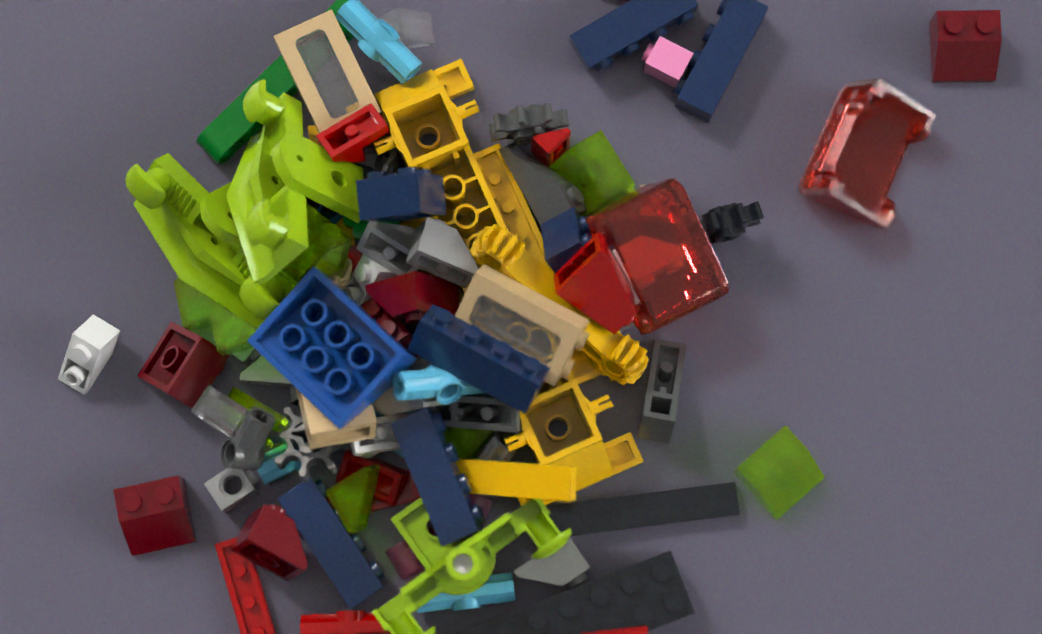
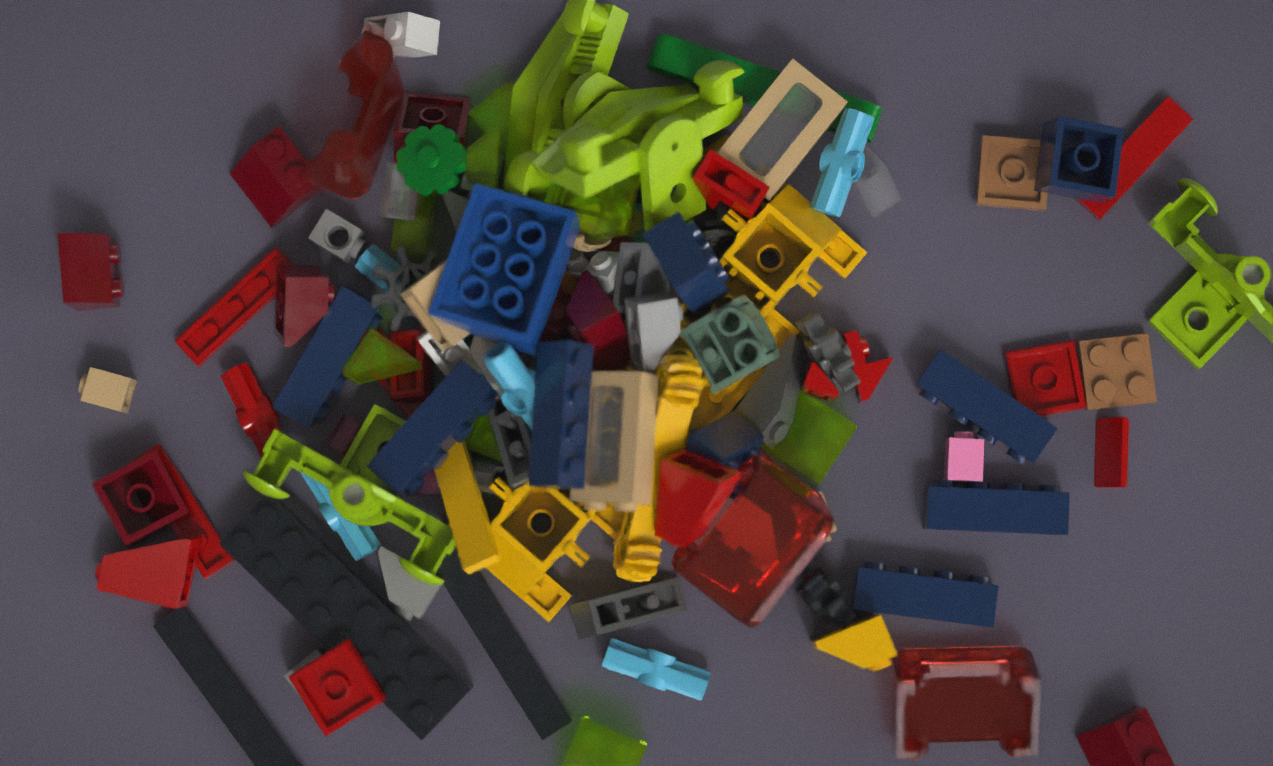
camera: 65 degrees right, 5 degrees up
(112, 390) = (352, 158): none -> clear red windscreen
(208, 370) = (432, 160): none -> green plant
(247, 447) = (378, 233): dark grey piece -> none
(485, 194) = (731, 342): none -> sand green slope
(561, 100) = (868, 373): none -> red slope
(723, 391) = (656, 669): none -> medium azure piece
(765, 145) = (924, 596): none -> dark blue brick
(783, 208) = (860, 643): none -> yellow slope

